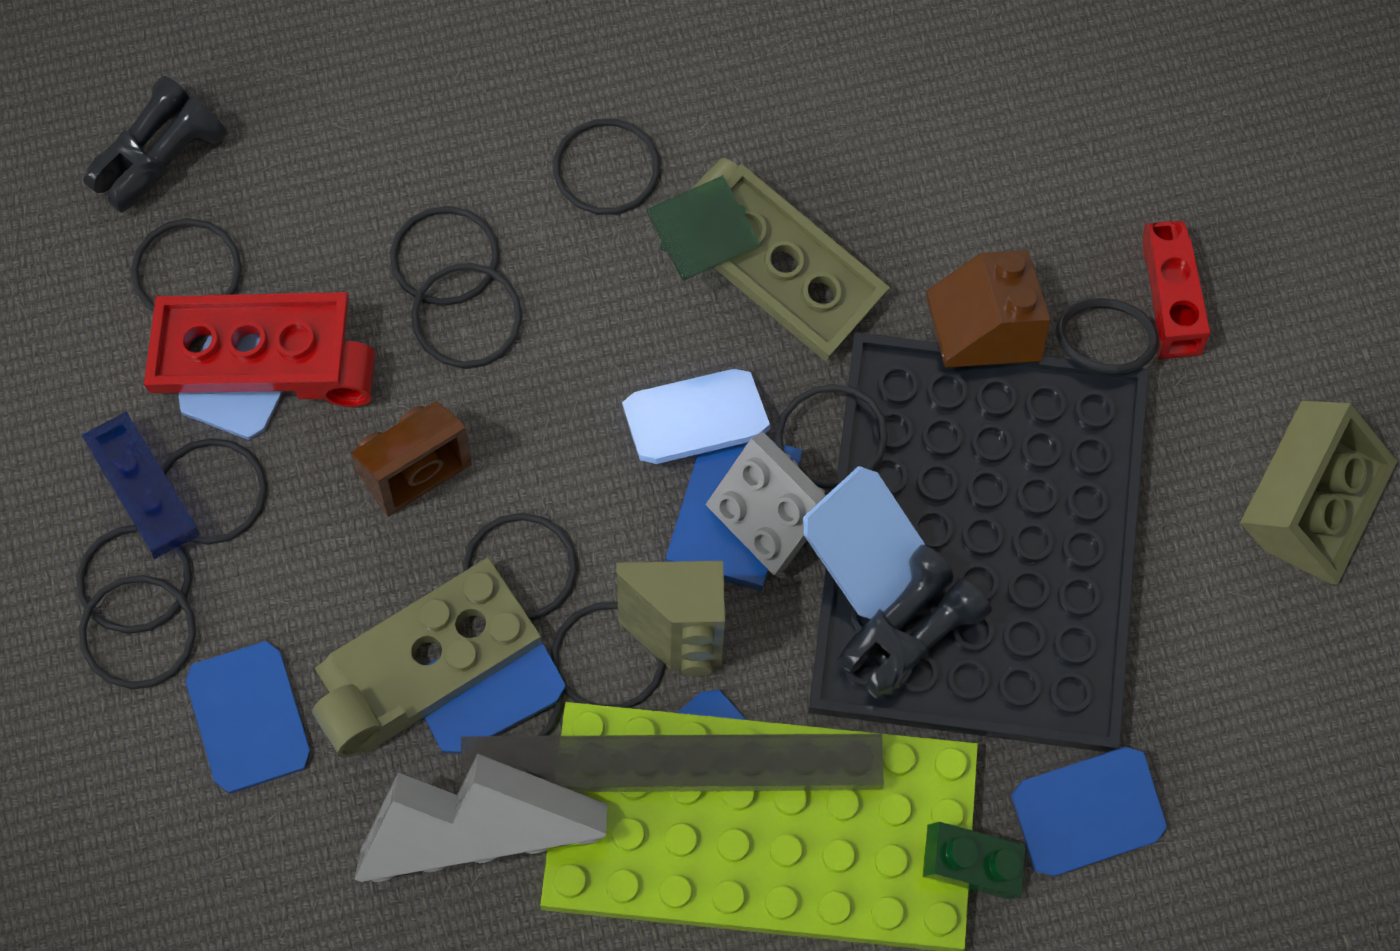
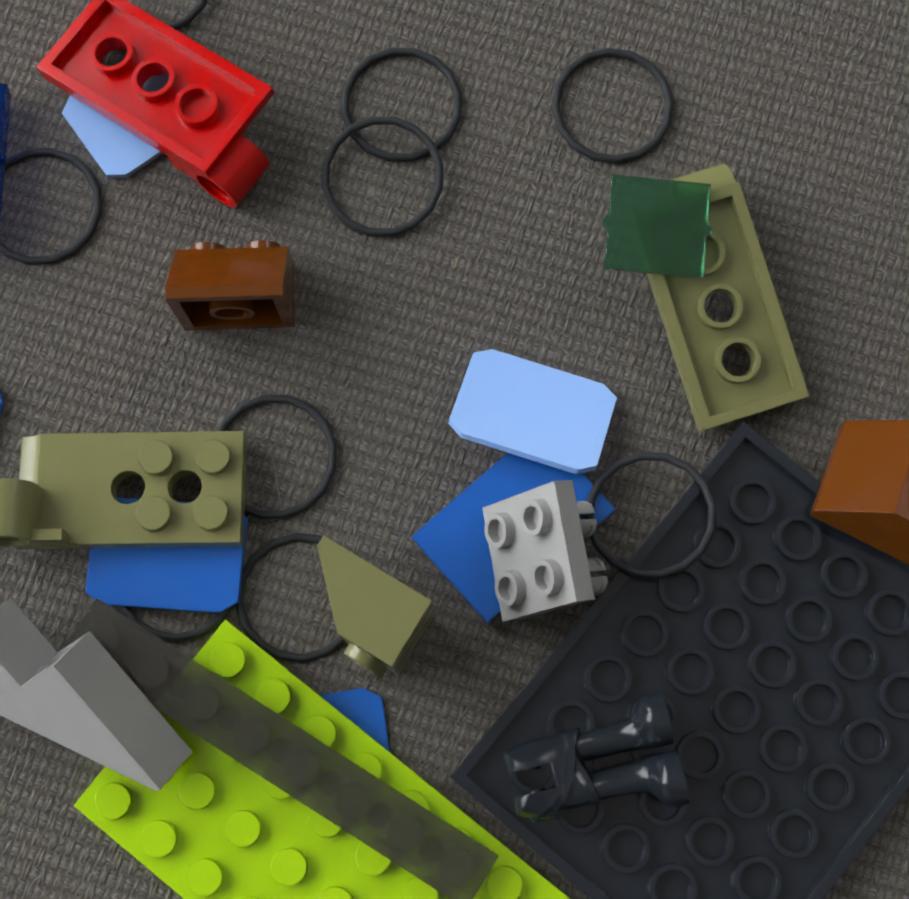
camera: 35 degrees right, 10 degrees up
(863, 541) = (604, 653): light blue piece -> none

